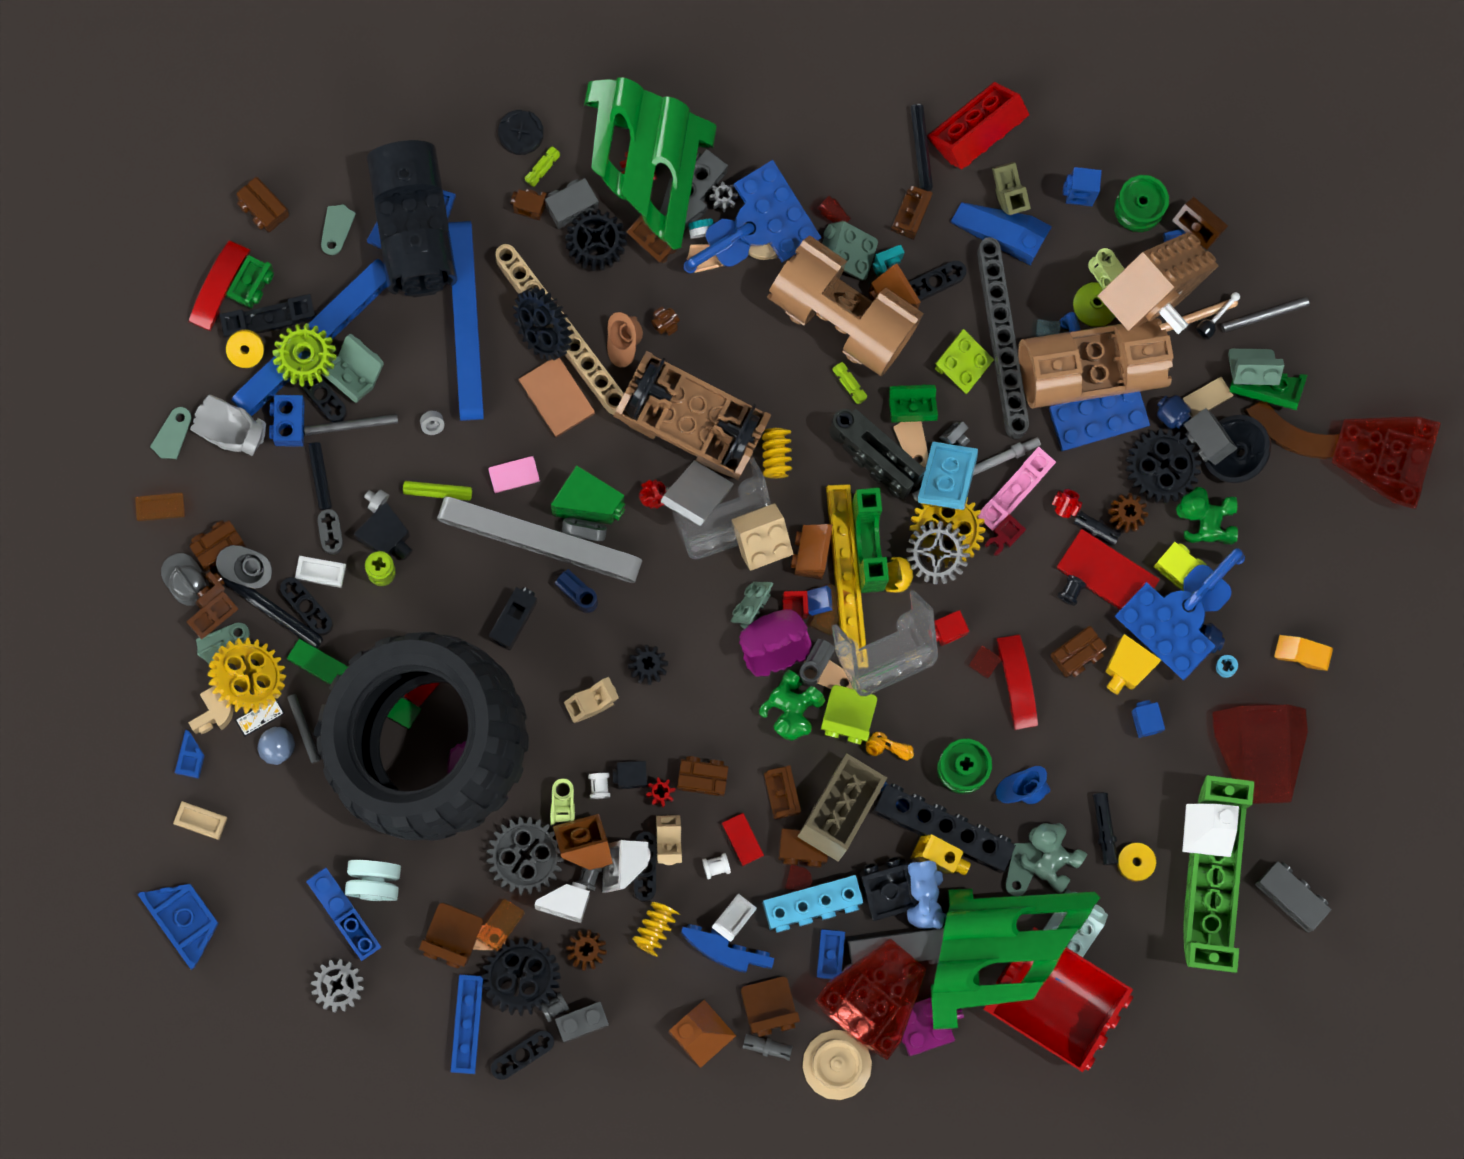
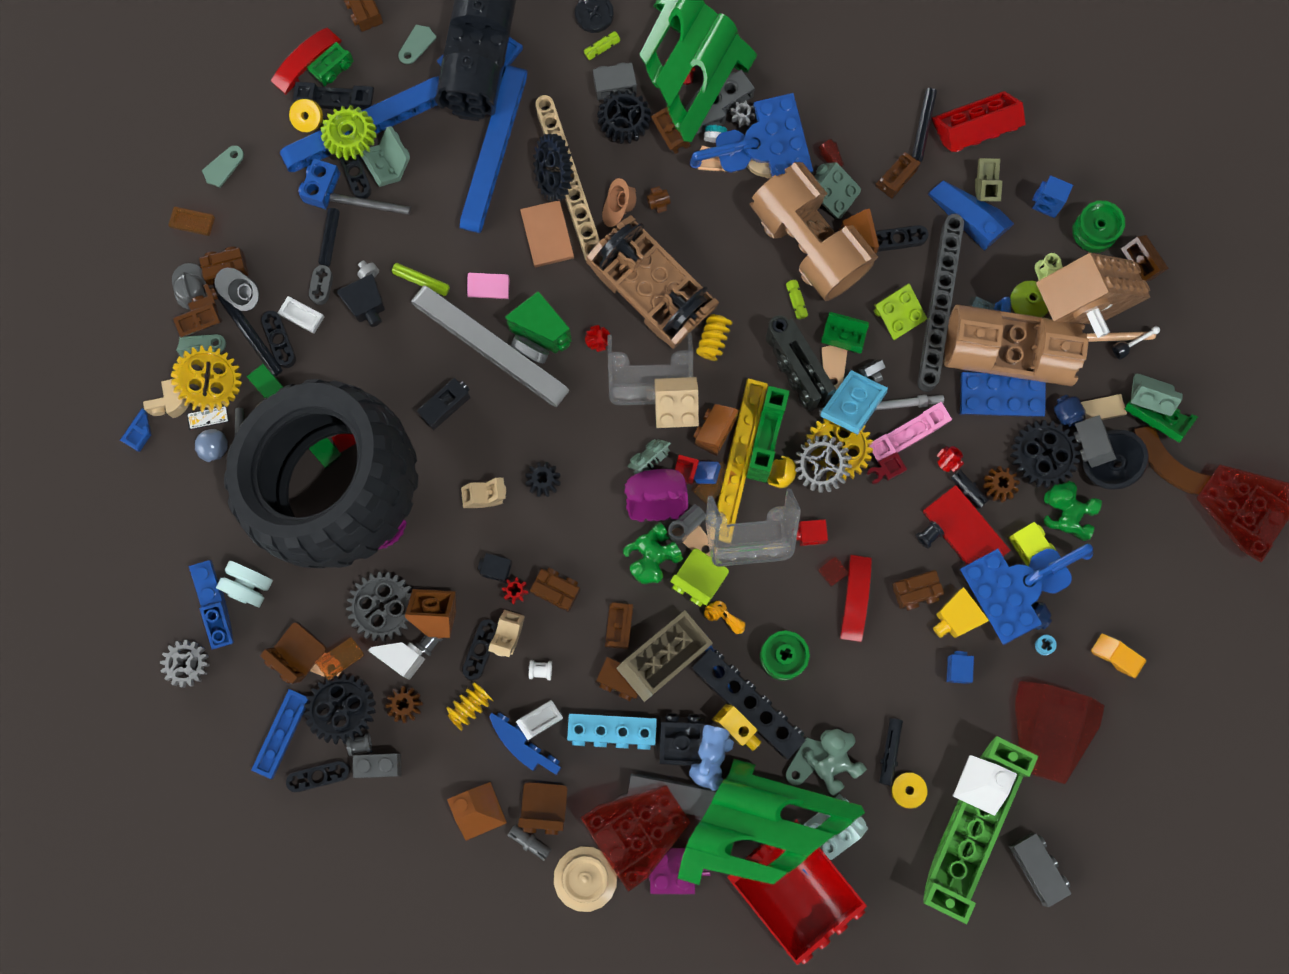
camera: 30 degrees right, 0 degrees up
(182, 919) = (79, 564): blue wing -> none
(200, 820) = (126, 487): tan tile -> none
(228, 426) = (269, 173): light grey hair -> none
(378, 561) = (347, 326): lime piece -> none
(432, 422) = (435, 222): light grey tile -> none
(528, 203) = (579, 71): reddish brown brick -> none
(562, 804) = (428, 573): yellowish green piece -> none
(576, 590) = (505, 398): dark blue piece -> none
(599, 785) = (465, 568): white bush -> none
(628, 861) = (464, 640): white slope -> none
(697, 493) = (632, 347): light grey tile -> none
(742, 839) = (571, 654): red tile -> none
(798, 878) = (607, 705): clear red tile -> none
(830, 954) = (612, 780): blue plate -> none
(889, 257) = (864, 203): teal bracket -> none
(1024, 786) = (833, 691): blue piece -> none
(1262, 315) = (1188, 354): flat silver bar -> none

